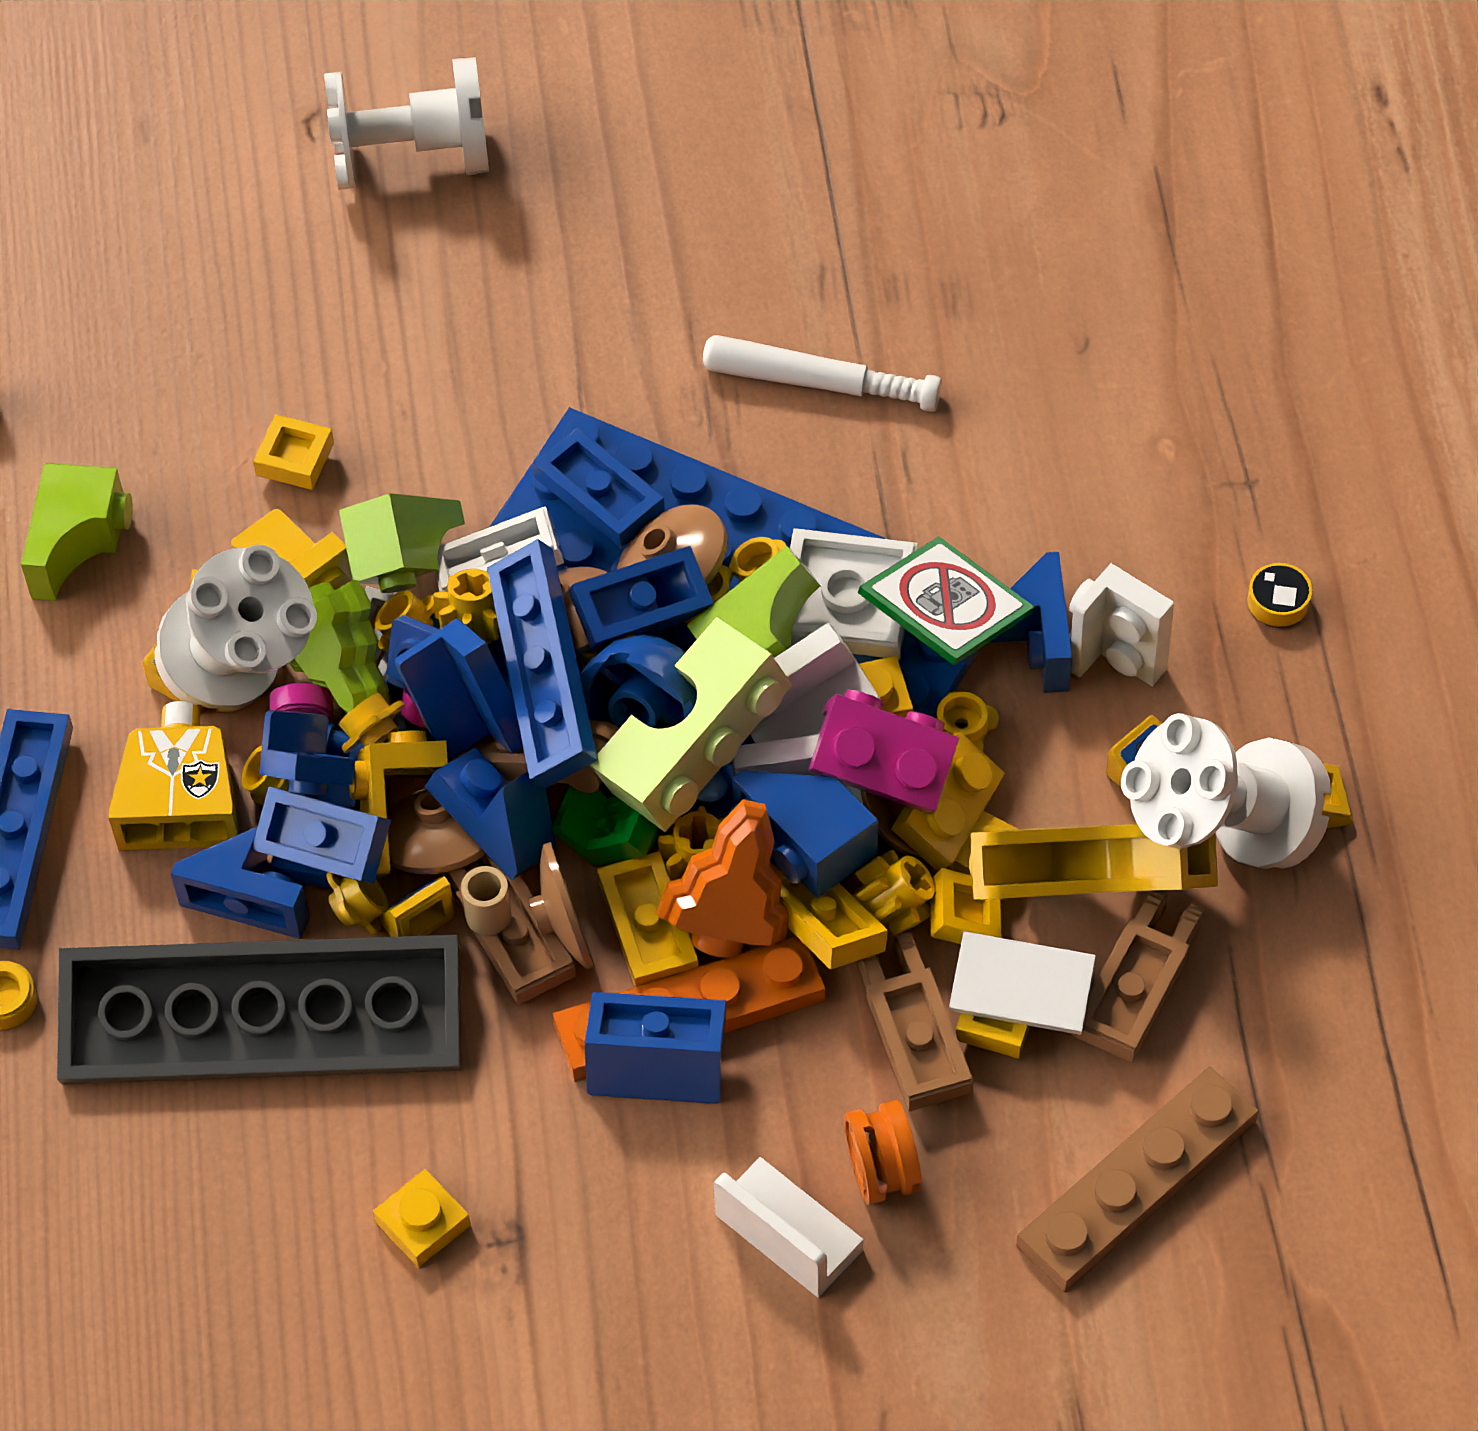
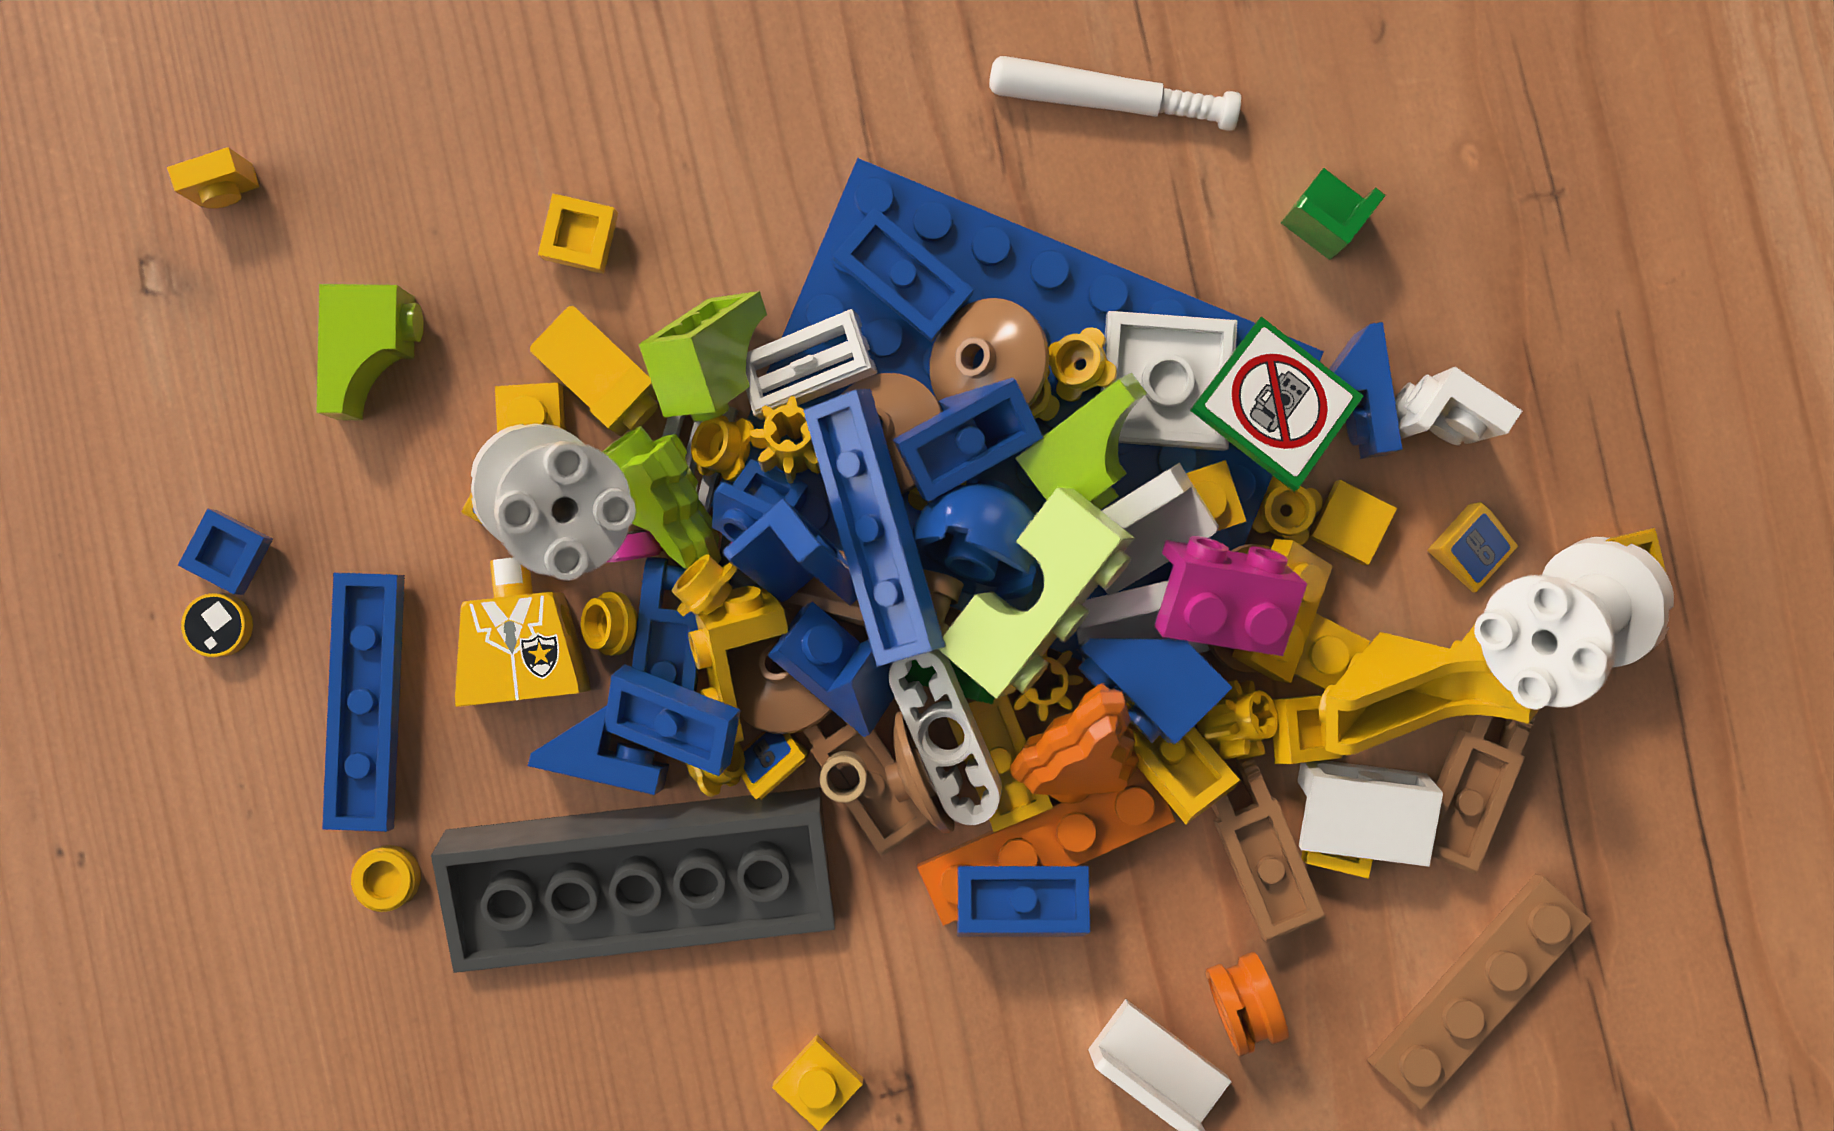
camera: 10 degrees left, 30 degrees up
(297, 752) = (639, 636): blue bracket -> none
(563, 835) = (979, 770): none -> white beam
(1020, 478) = (1330, 213): none -> green panel
(1028, 740) = (1352, 522): none -> yellow tile
(1279, 594) = (1593, 334): tile -> none

